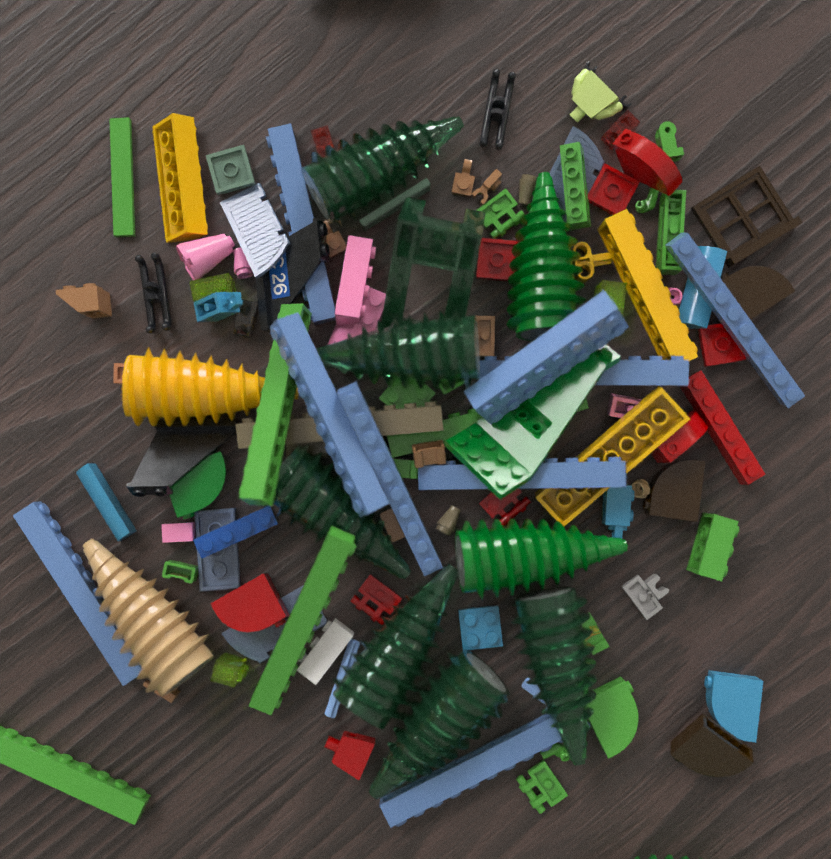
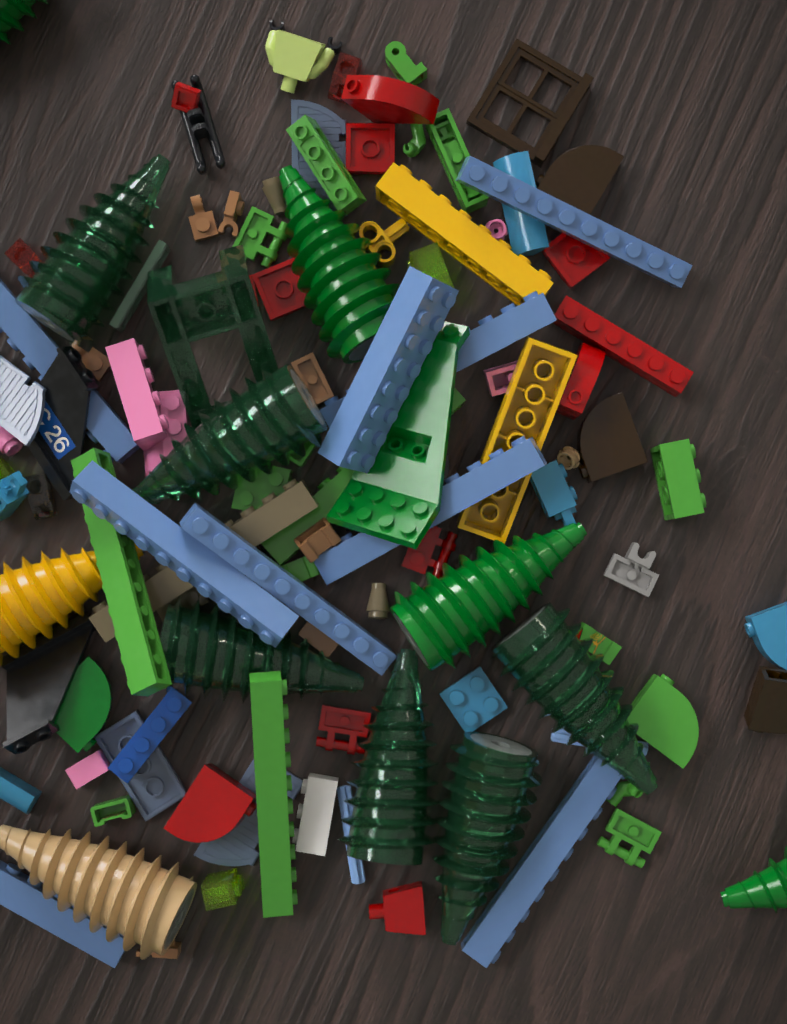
camera: 30 degrees left, 0 degrees up
(498, 85) = (185, 97): none -> red tile

